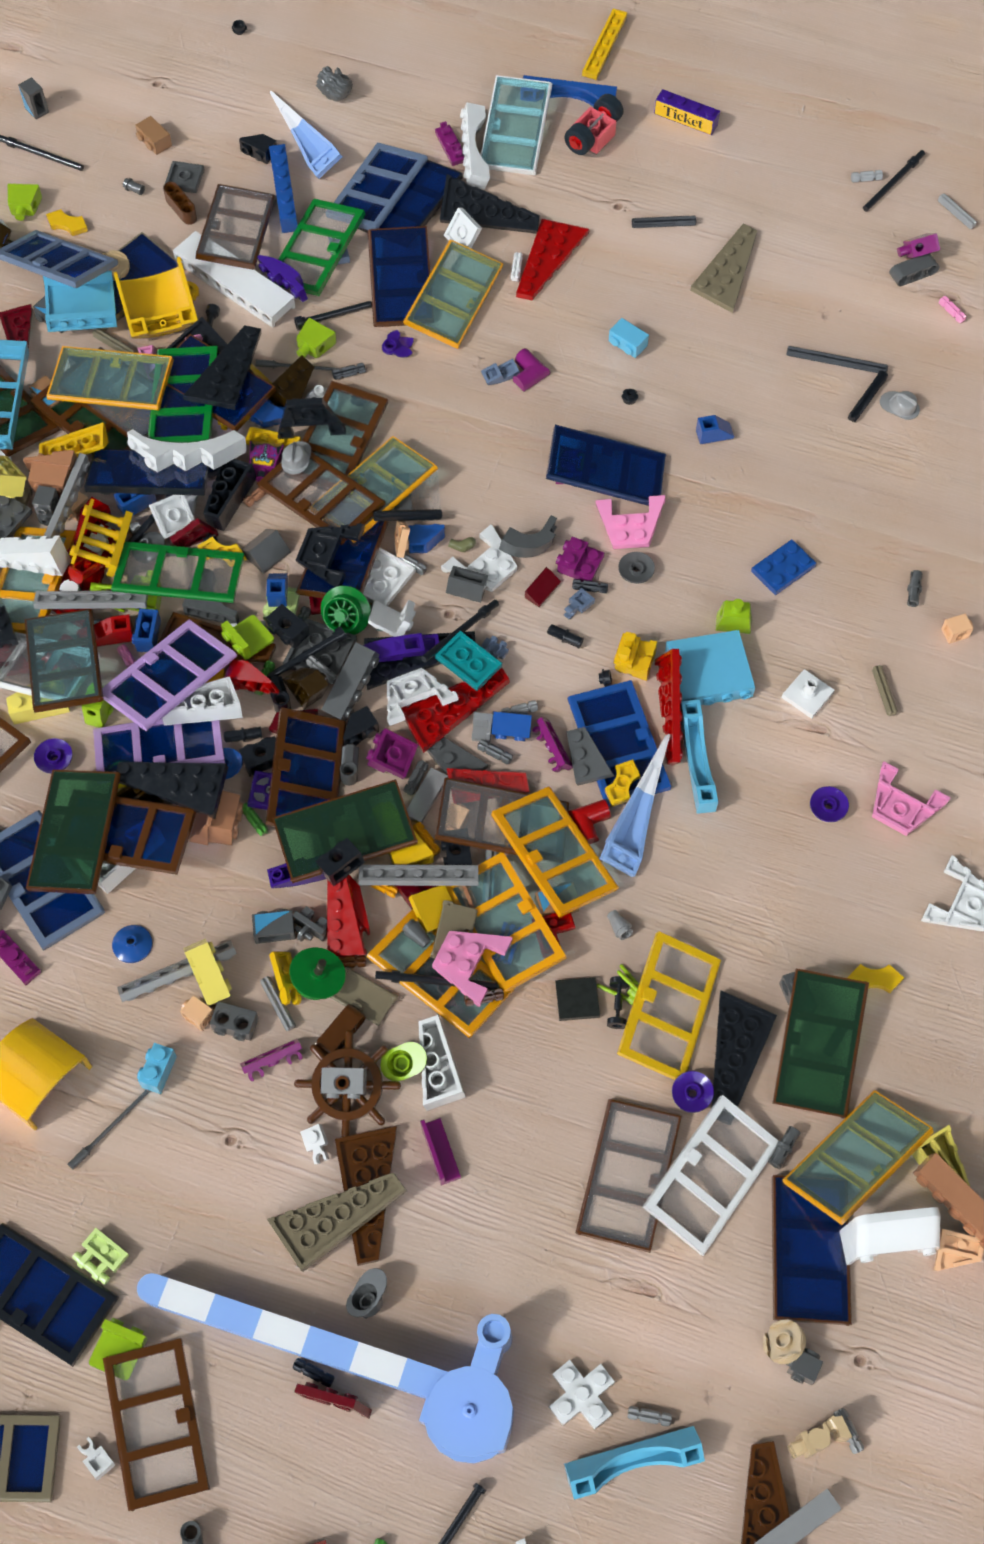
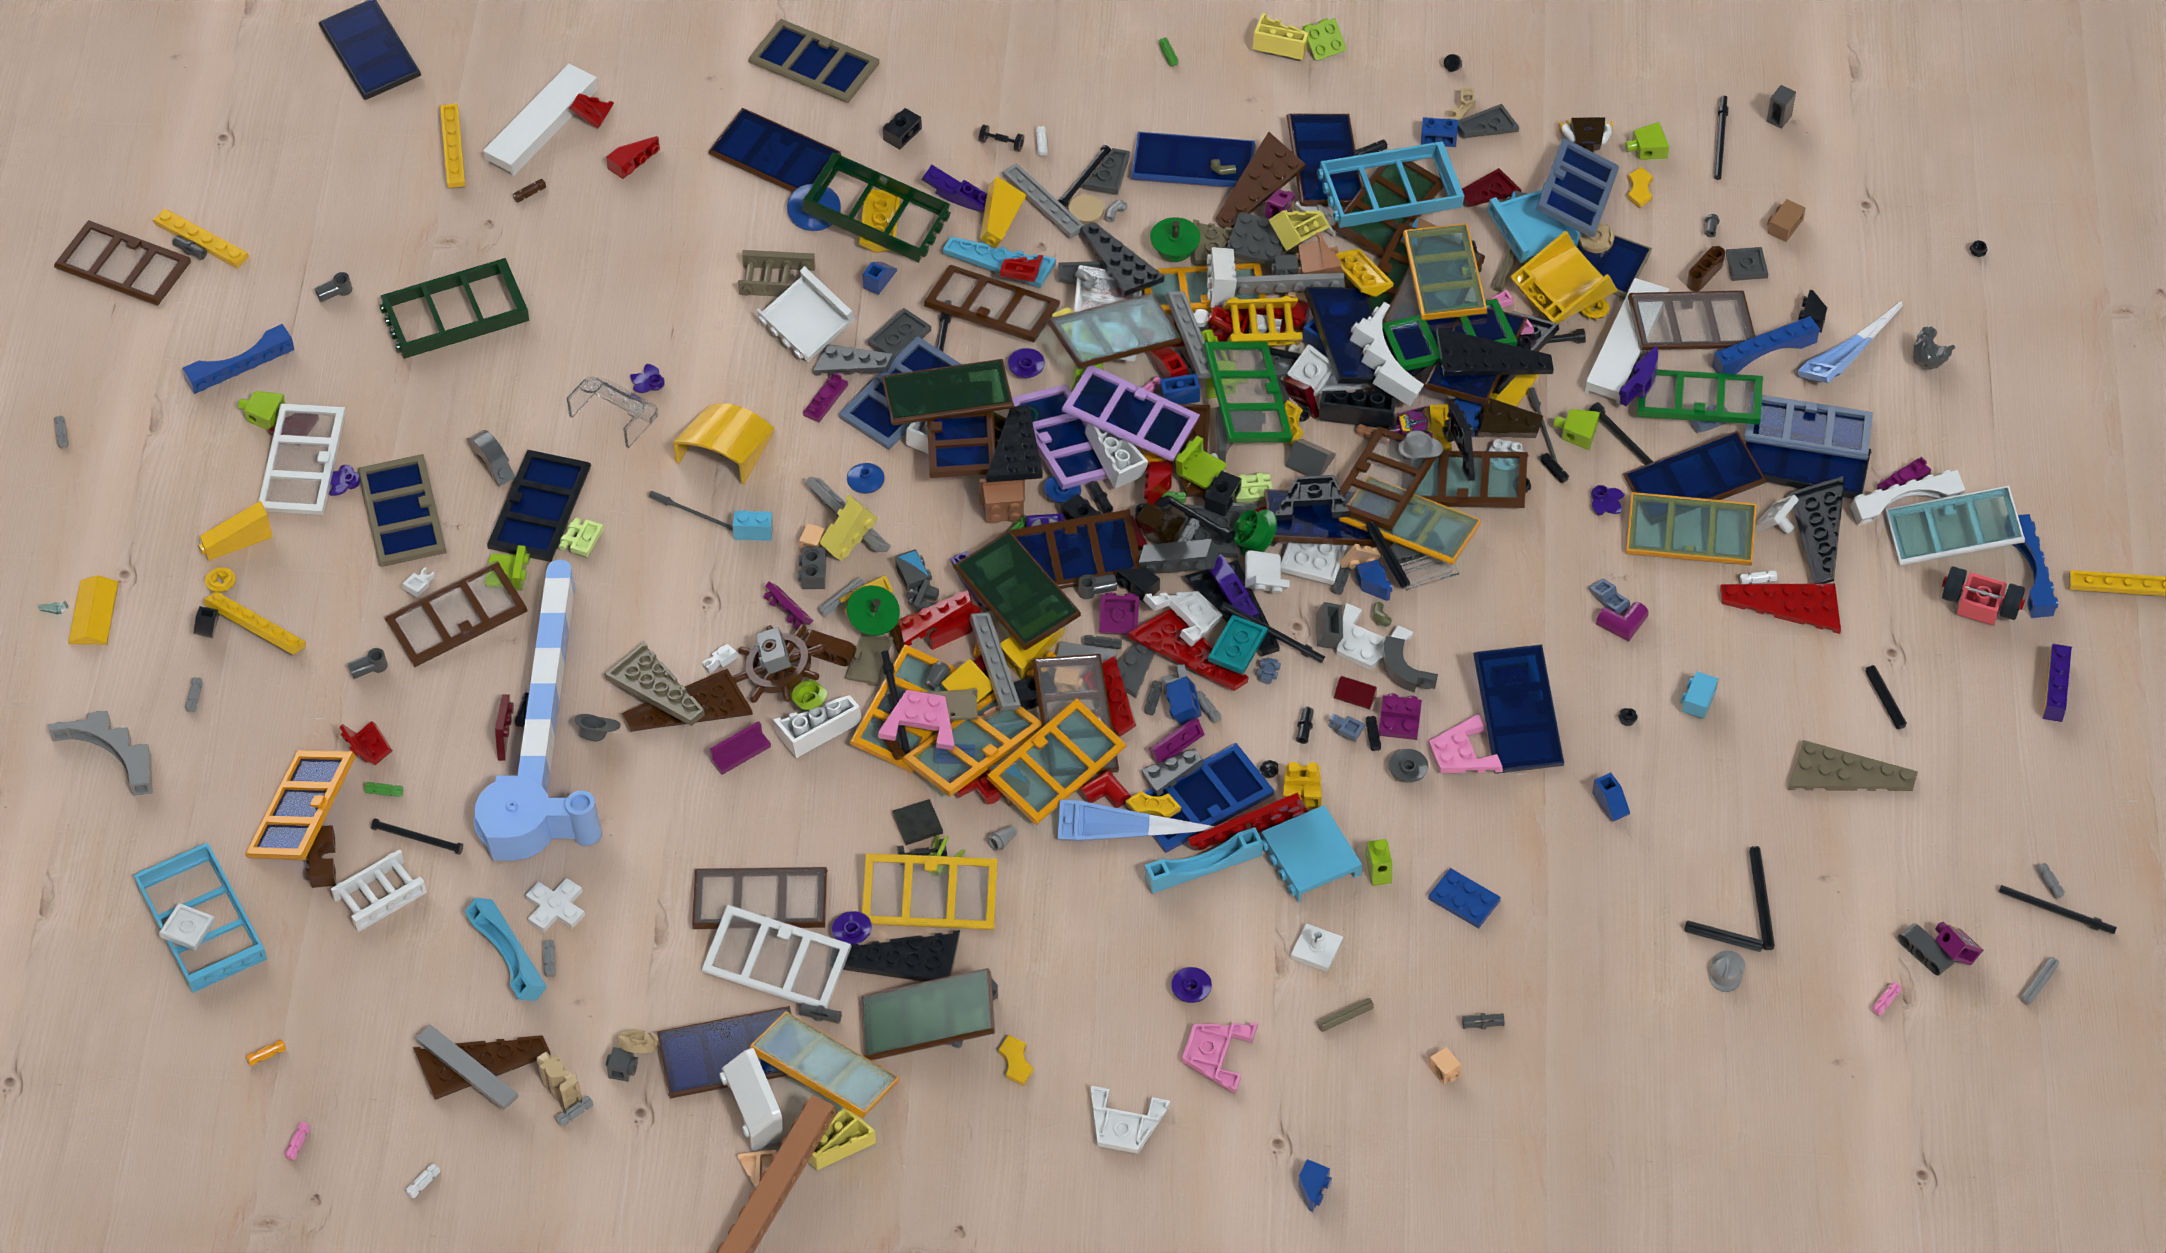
camera: 75 degrees right, 10 degrees down
(277, 589) = (1260, 472): blue slope -> none
(349, 858) = (979, 589): black brick -> none

